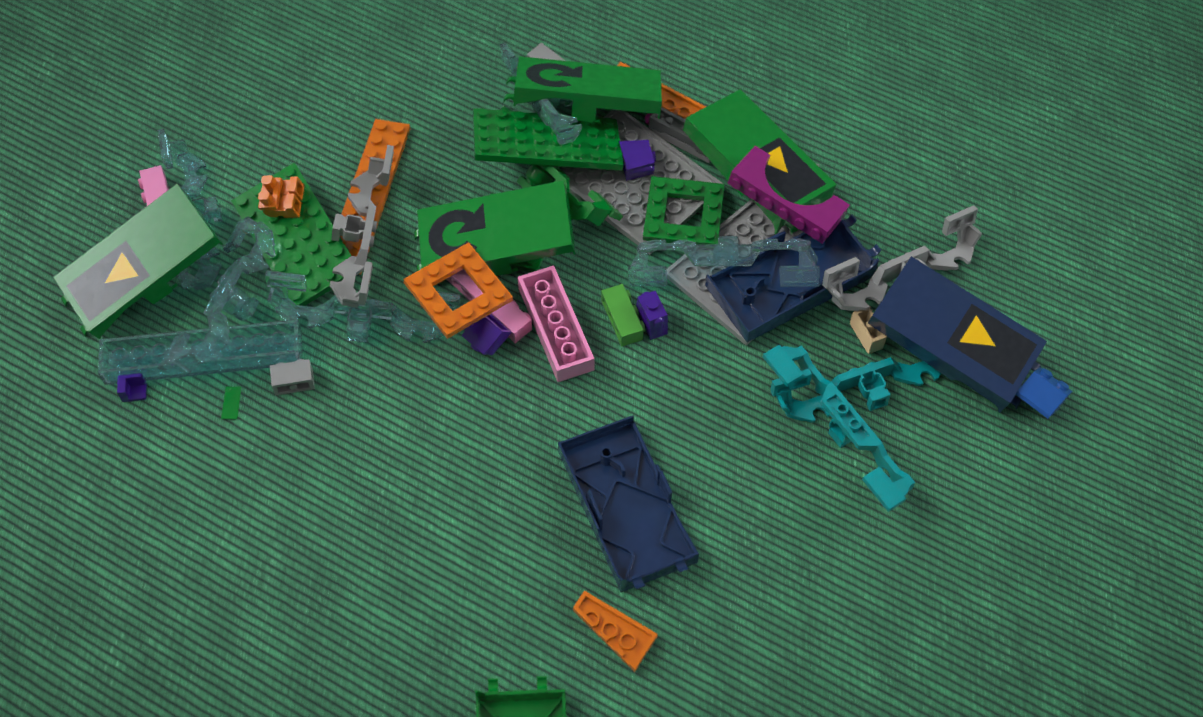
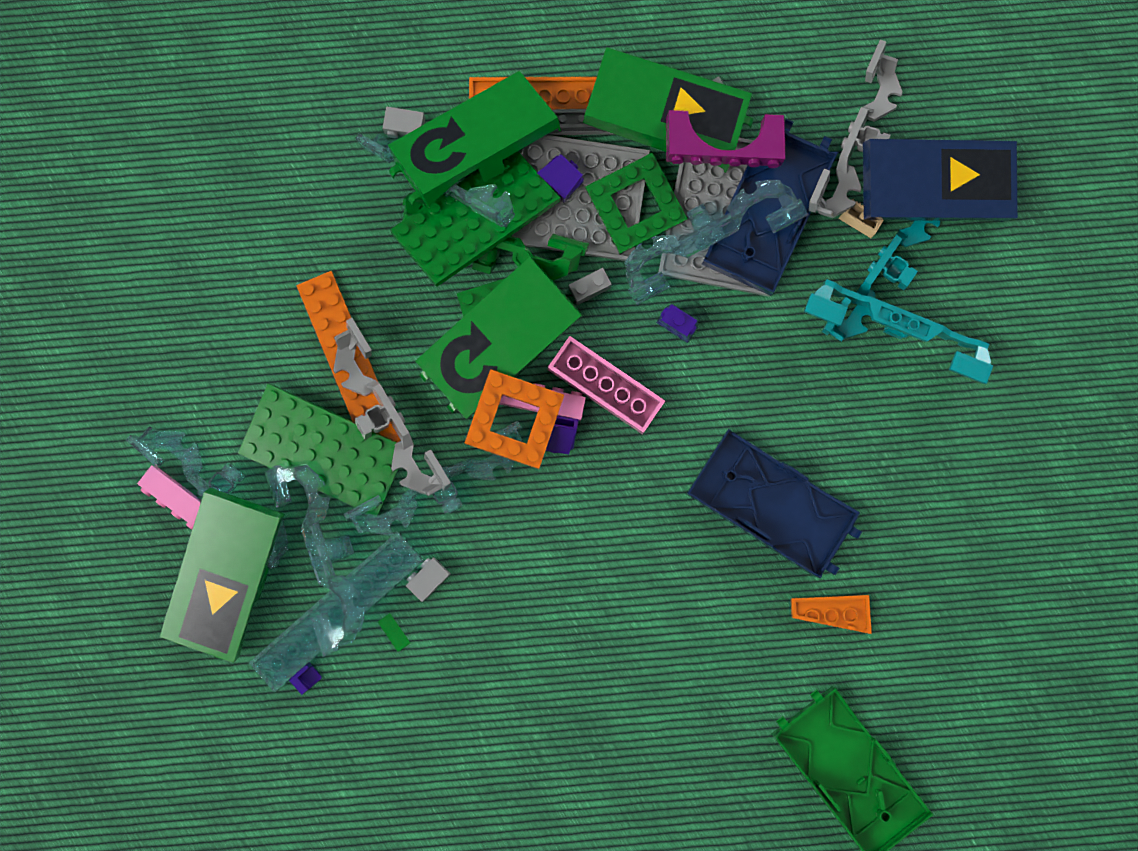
camera: 35 degrees left, 25 degrees up
(281, 196) = (287, 430): orange hips -> none
(600, 248) = (590, 286): none -> light grey brick
(622, 314) = (652, 337): bright green brick -> none
(1044, 392) = (1036, 186): blue slope -> none

